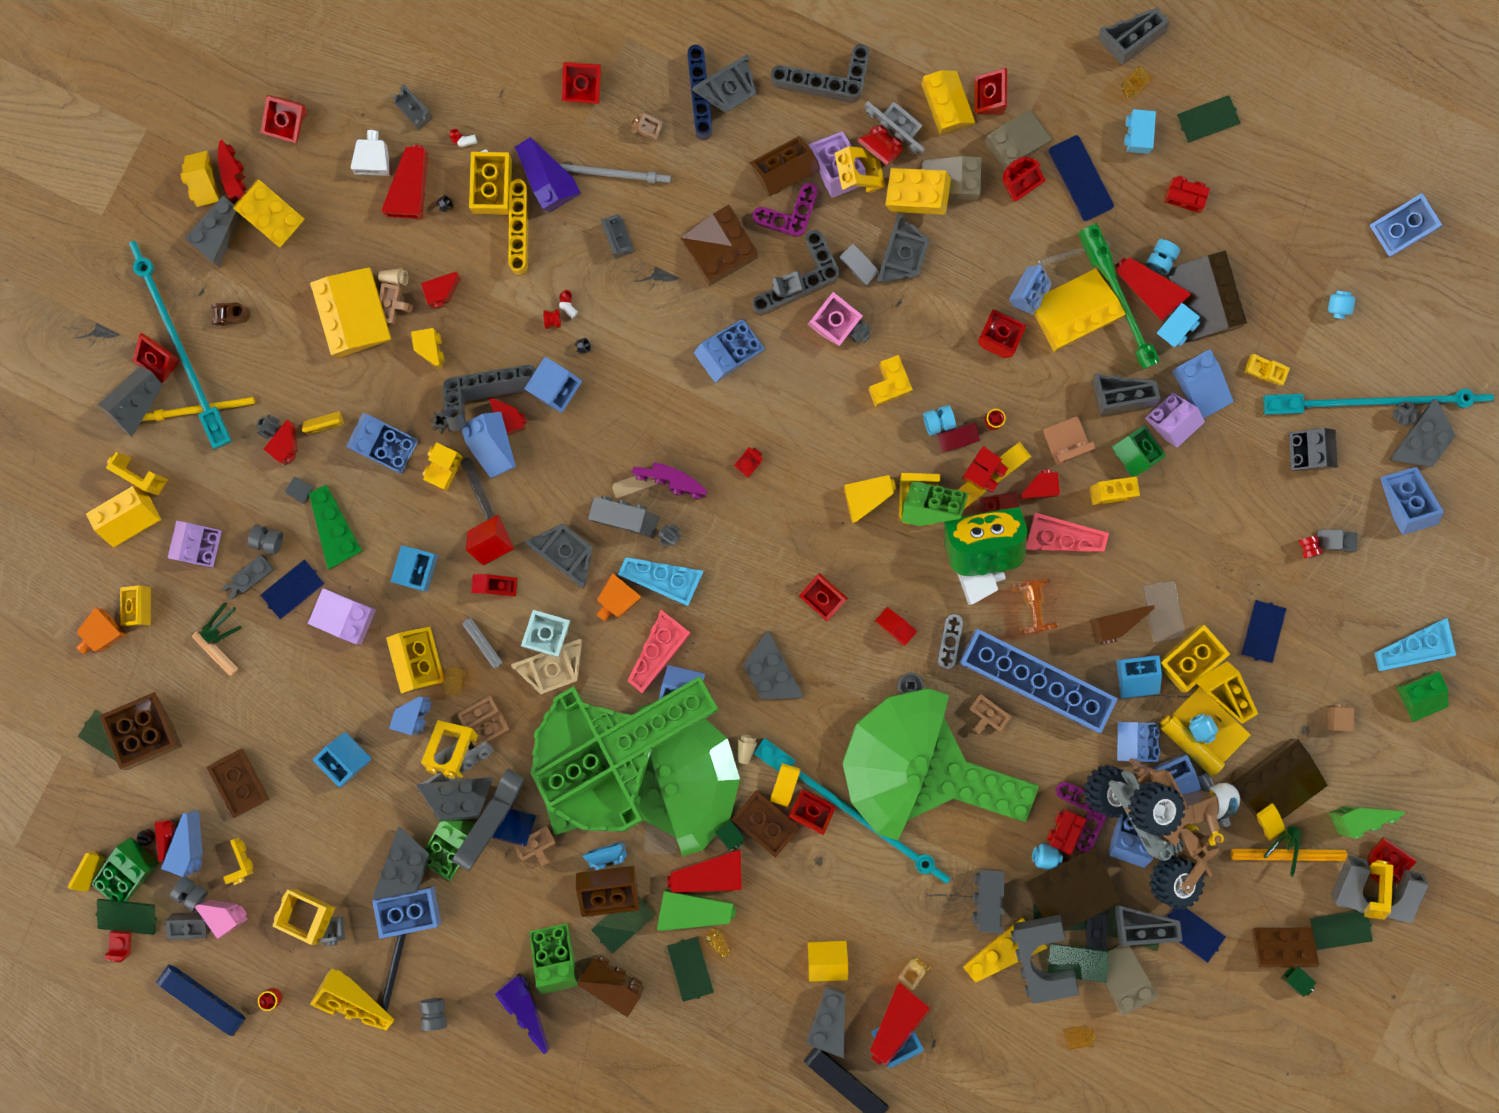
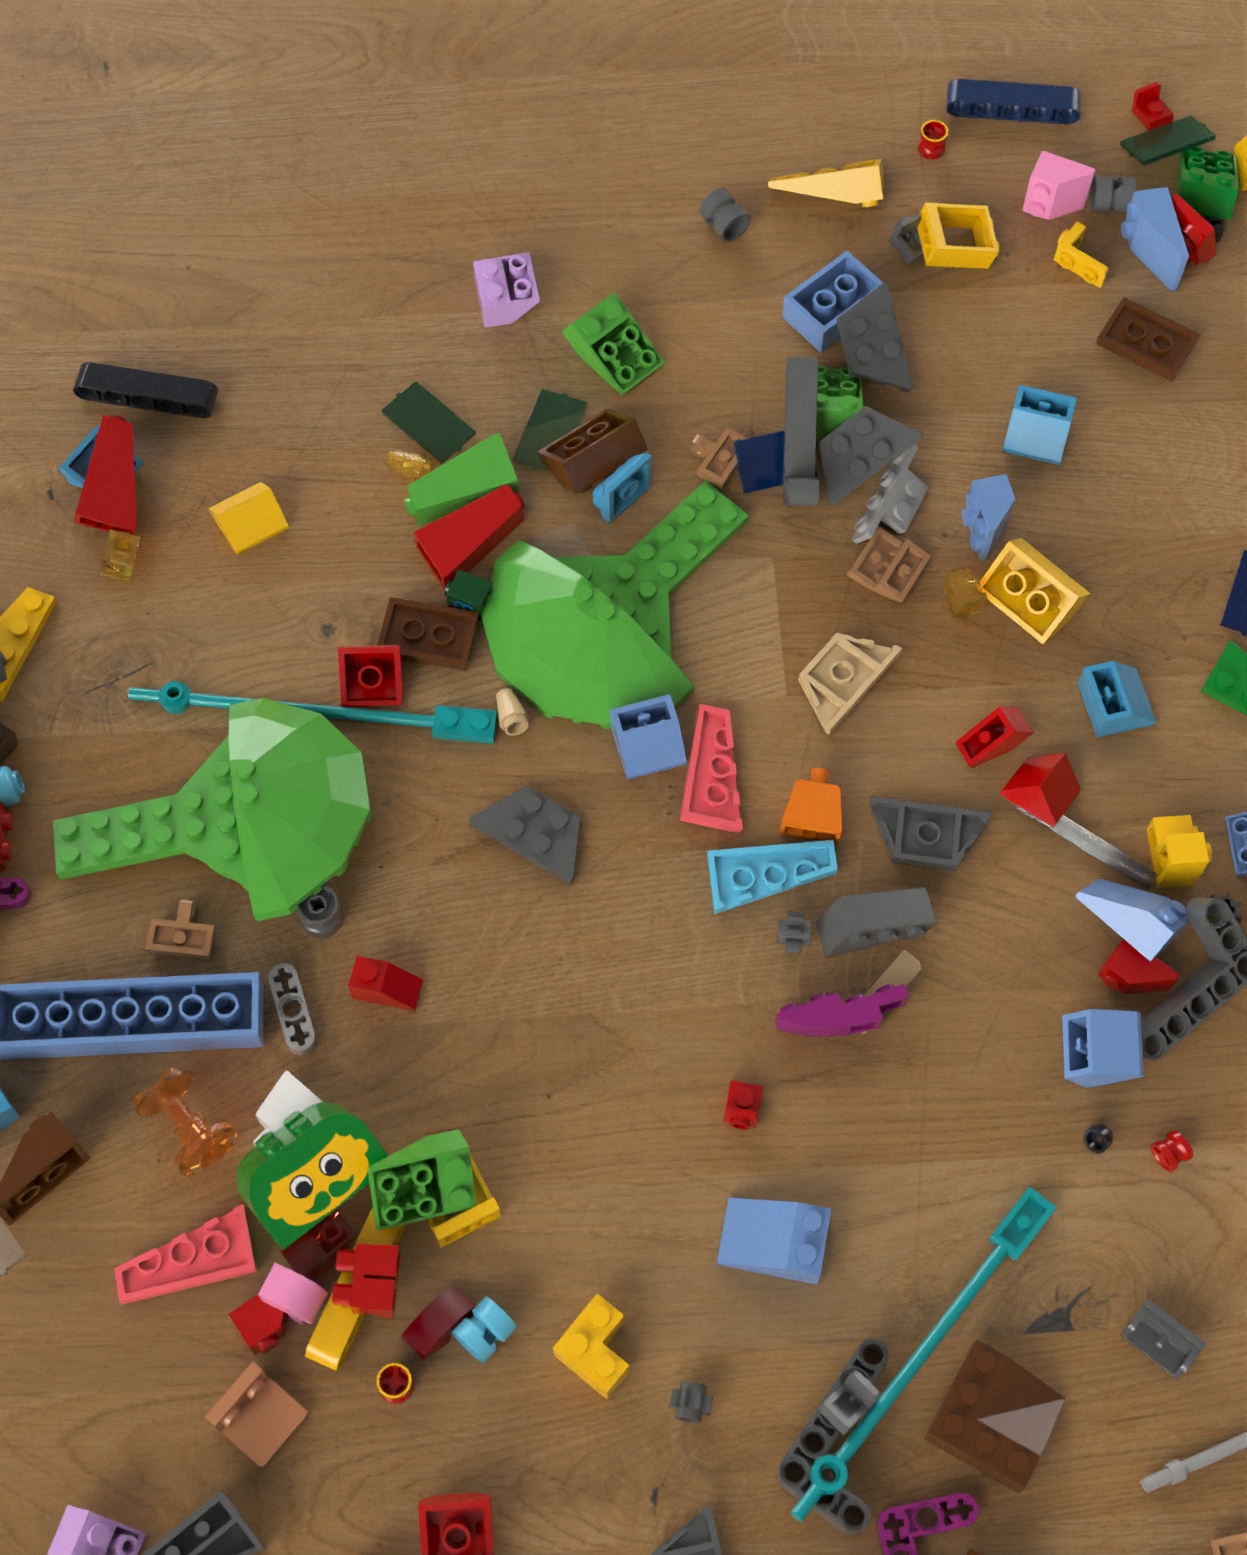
camera: 150 degrees right, 20 degrees down
(186, 926) = (1096, 154): dark grey hinge -> none
(342, 616) = (1164, 592): lavender slope -> none
(393, 971) = (802, 232): black bar -> none
(451, 768) = (900, 526): yellow panel -> none
(482, 643) = (958, 658): light grey axle -> none
(518, 999) = (628, 271): dark purple wedge -> none
(545, 633) = (881, 707): light aqua slope -> none
(565, 303) = (1166, 1187): arm -> none
(595, 1034) = (505, 288): none -> lavender slope
(596, 758) = (706, 582): bright green plate -> none
(611, 985) = (519, 337): reddish brown slope -> none
(659, 321) = (1010, 1239): none -> teal bar
(728, 350) = (876, 1258): medium blue slope -> none
(773, 386) = (775, 1238): none -> medium blue slope
(785, 784) = (429, 692): yellow slope -> none
(823, 597) = (516, 972): red slope -> none
(828, 1022) = (206, 442): dark grey wedge -> none
(835, 319) = (741, 1396): bright pink slope -> none
(859, 264) = (755, 1519): light grey slope -> none
(867, 495) = (533, 1151): yellow slope -> none
(988, 900) = (56, 688): dark grey wedge -> none
(1024, 484) = (293, 1294): none -> bright pink brick
(1114, 491) = (129, 1365): yellow window -> none
(1139, 451) = (129, 1465): green slope -> none

